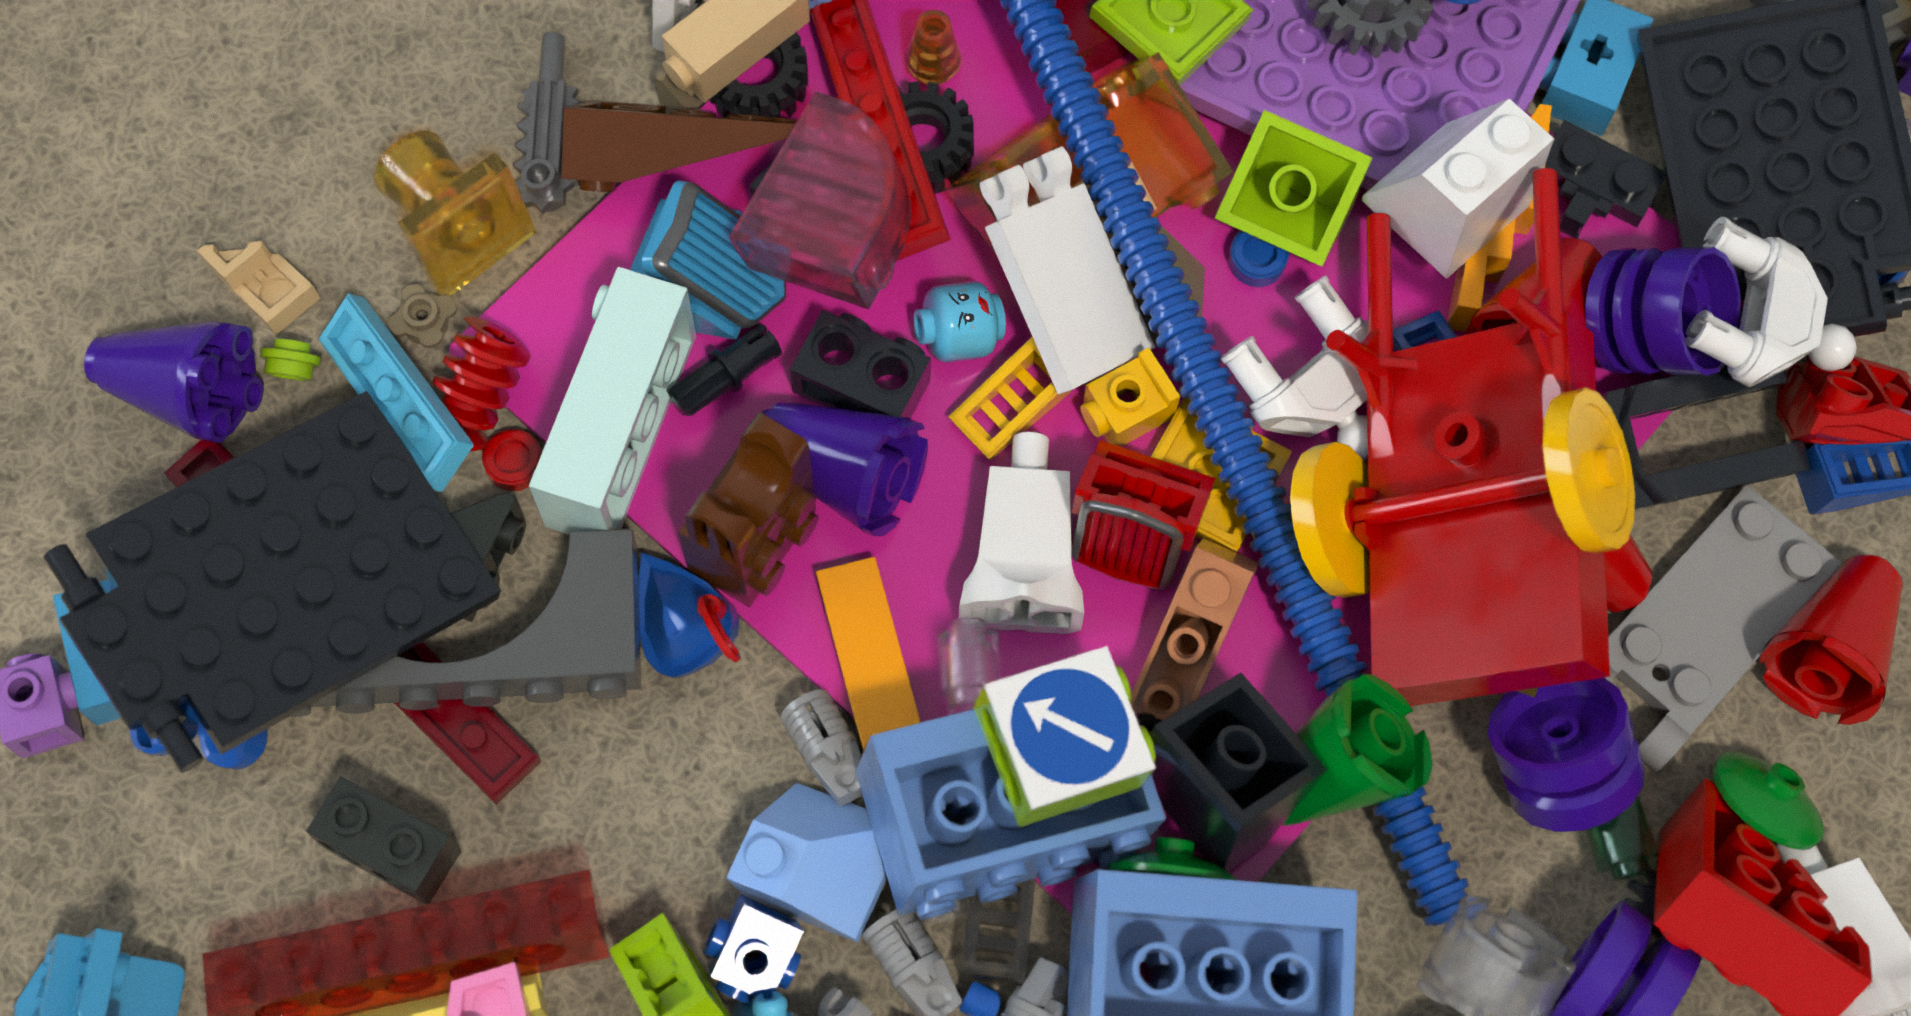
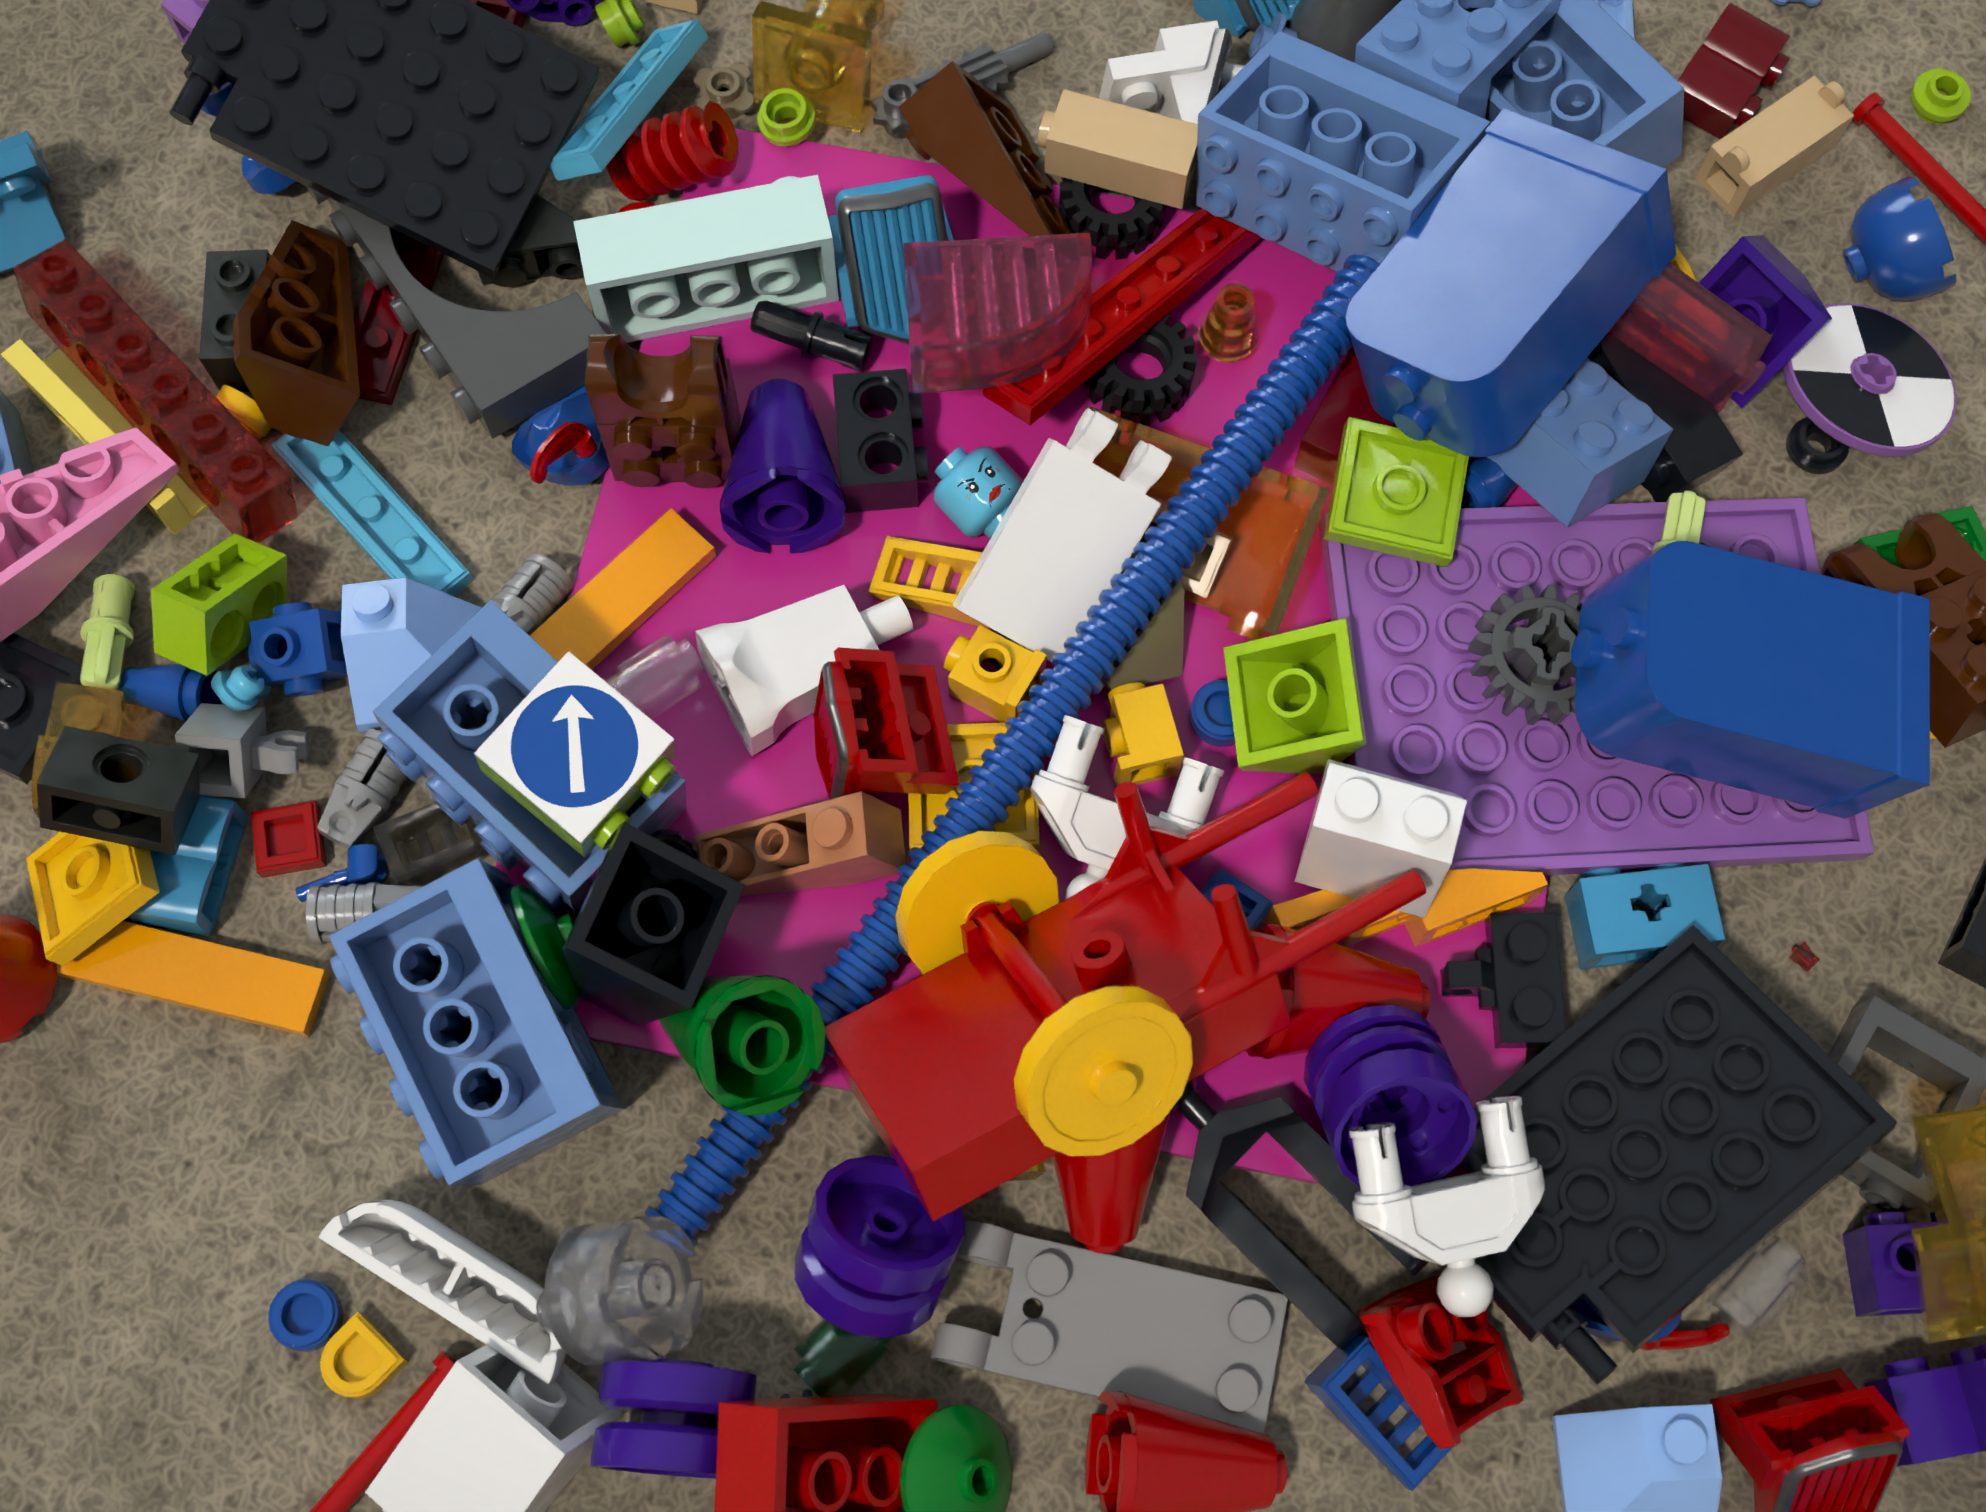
camera: 60 degrees right, 0 degrees up
(450, 786) = (300, 336): none -> reddish brown wedge
(476, 882) = (244, 410): none -> yellow tile
(488, 263) = (785, 104): none -> lime plate
(637, 830) = (372, 512): none -> medium azure tile
(1246, 312) = (1142, 734): none -> yellow brick

